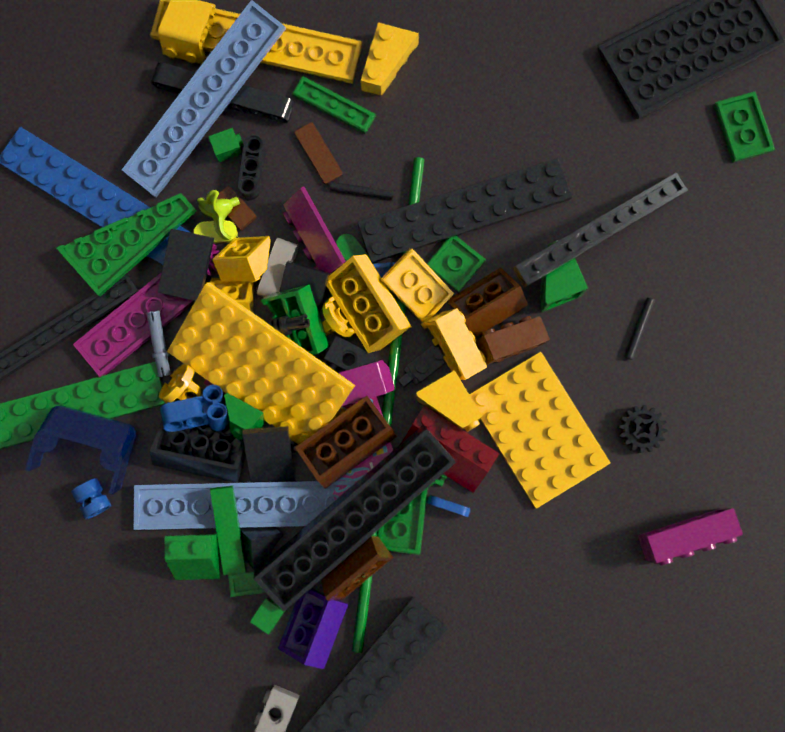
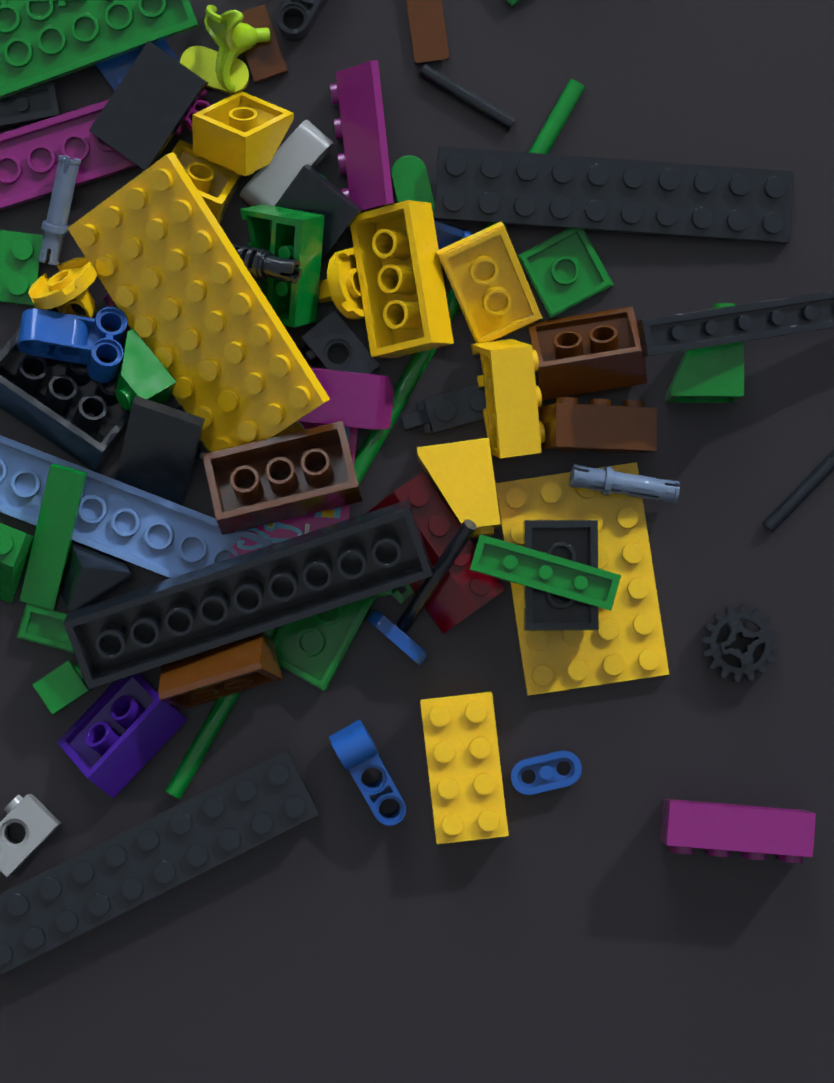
camera: 20 degrees right, 5 degrees up
(455, 583) = (359, 753): none -> blue piece
(458, 455) = (439, 571): none -> black bar
(518, 566) = (464, 767): none -> yellow brick
(520, 433) = (545, 572): none -> green plate
(527, 432) = (572, 541): none -> black brick
(534, 367) = (615, 482): none -> sand blue pin
(565, 549) = (545, 772): none -> blue plate

